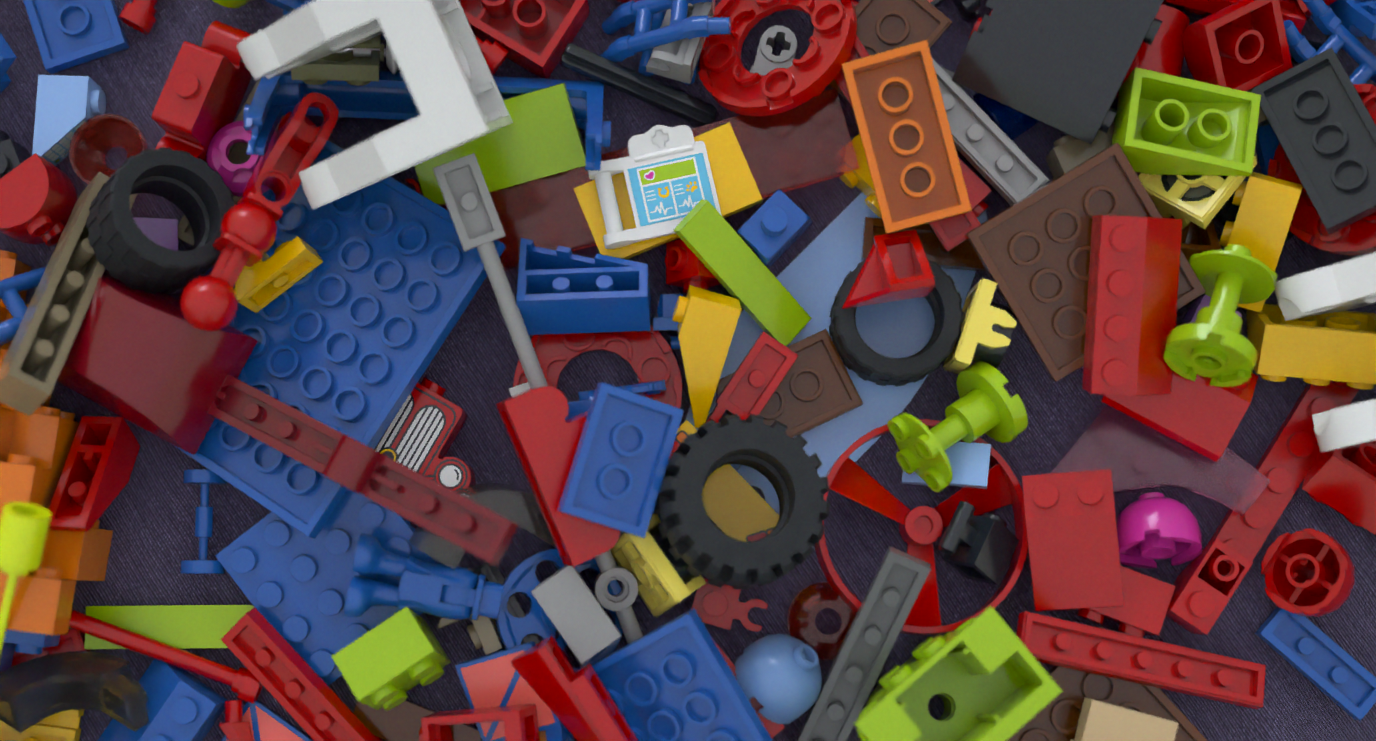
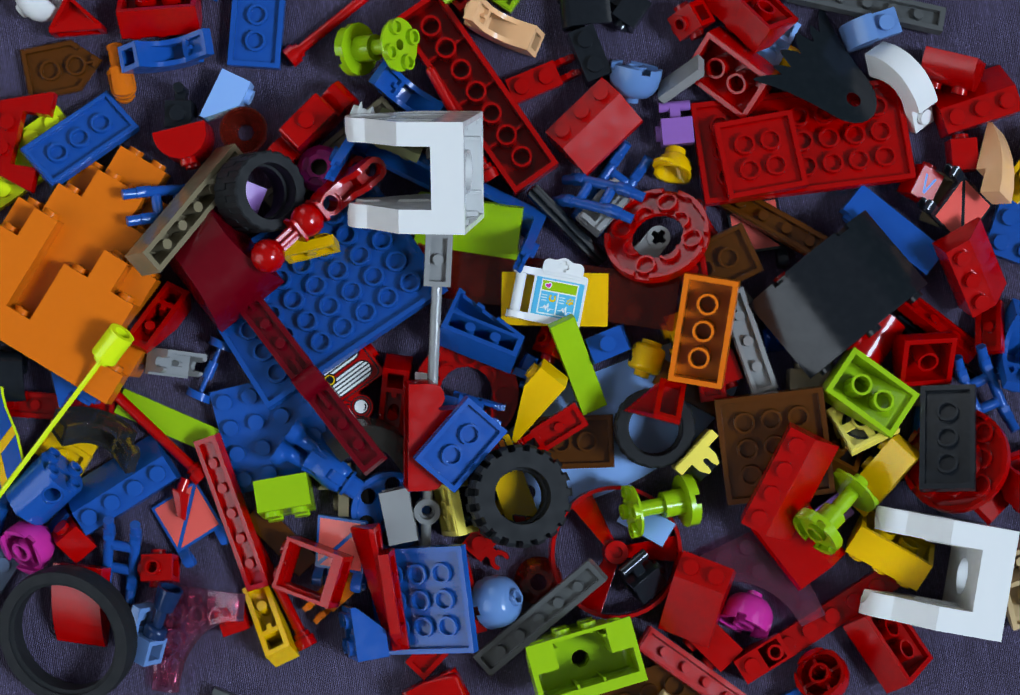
camera: 25 degrees right, 5 degrees up
(141, 533) = (173, 363): none -> light grey hinge
(487, 431) = (395, 371): none -> red slope
(839, 225) = (646, 358): none -> yellow head

